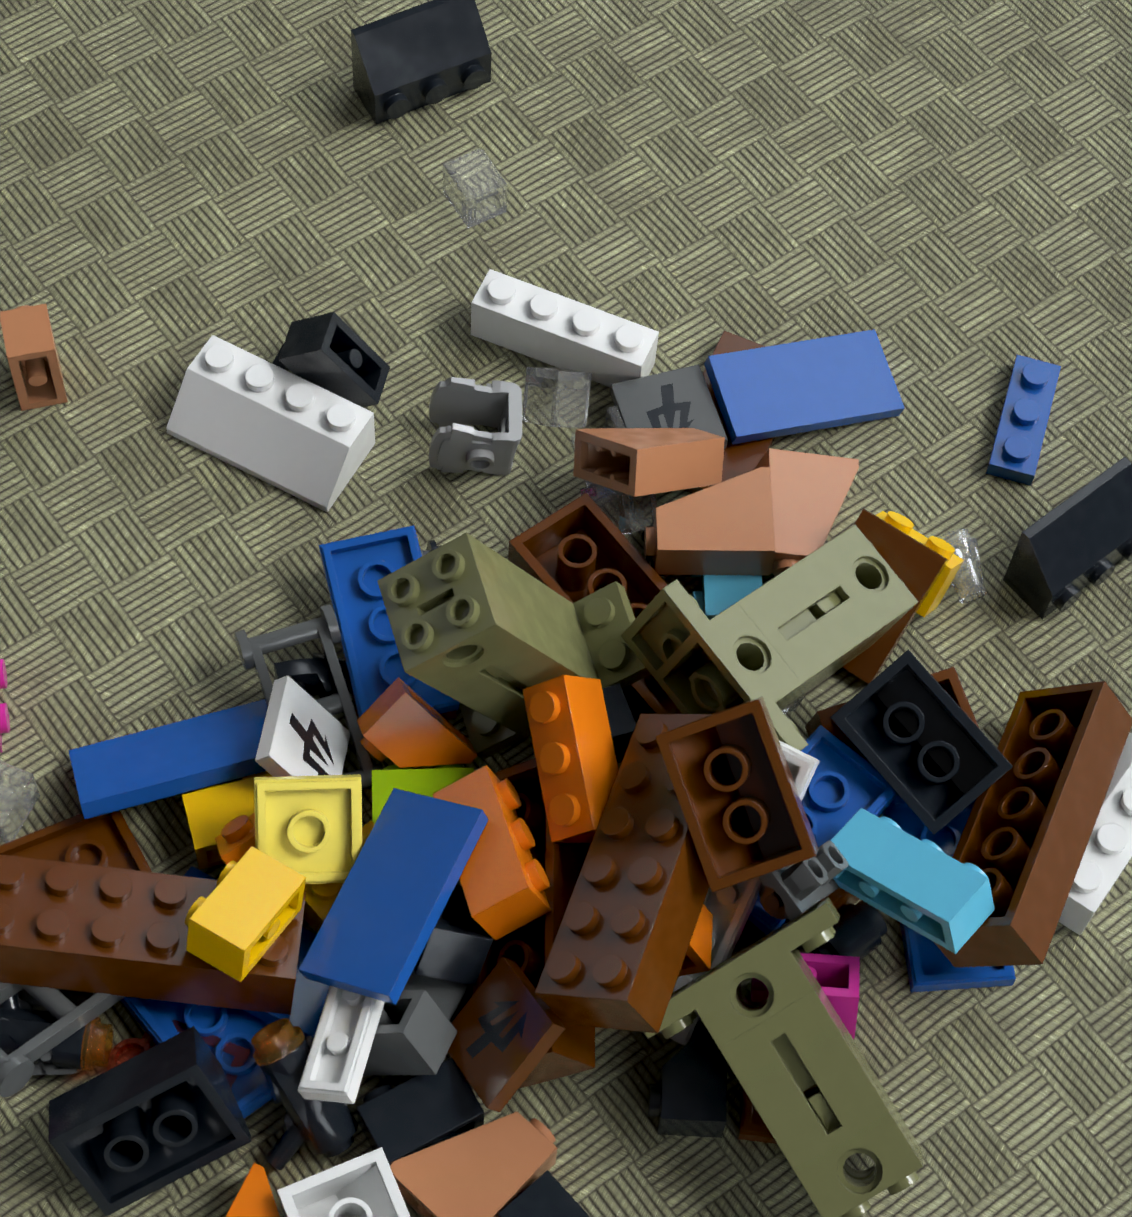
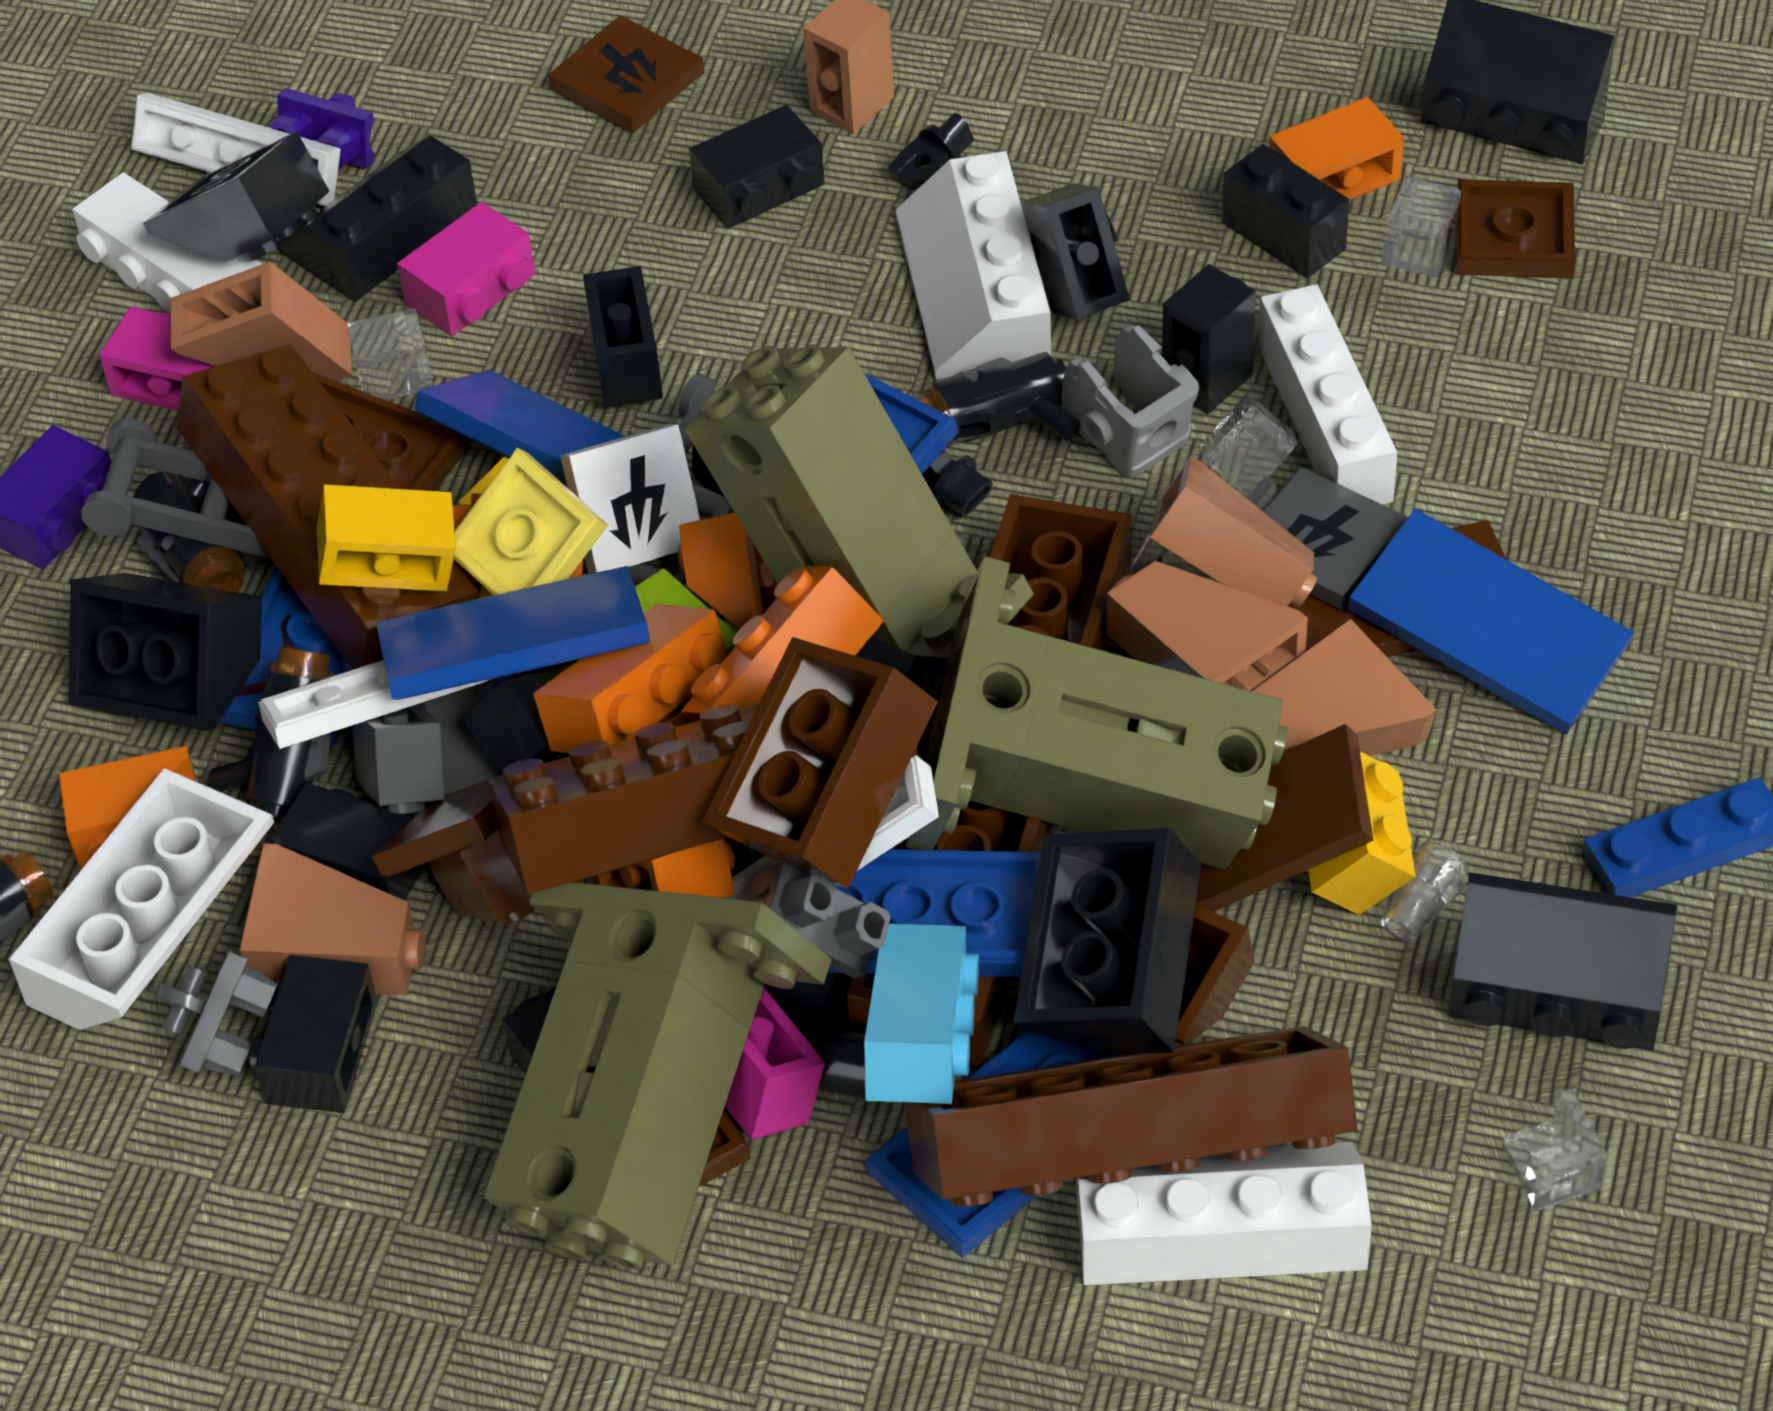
camera: 60 degrees right, 10 degrees down
(55, 473) = (757, 166): none -> black brick
(136, 652) = (623, 336): none -> black brick
(146, 368) = (931, 148): none -> black piece
(373, 184) = (1346, 148): none -> orange brick
(392, 483) = (1004, 396): none -> black piece
(395, 239) = (1285, 210): none -> black brick
(472, 342) = (1211, 333): none -> black brick
(517, 145) = (1515, 229): none -> reddish brown tile

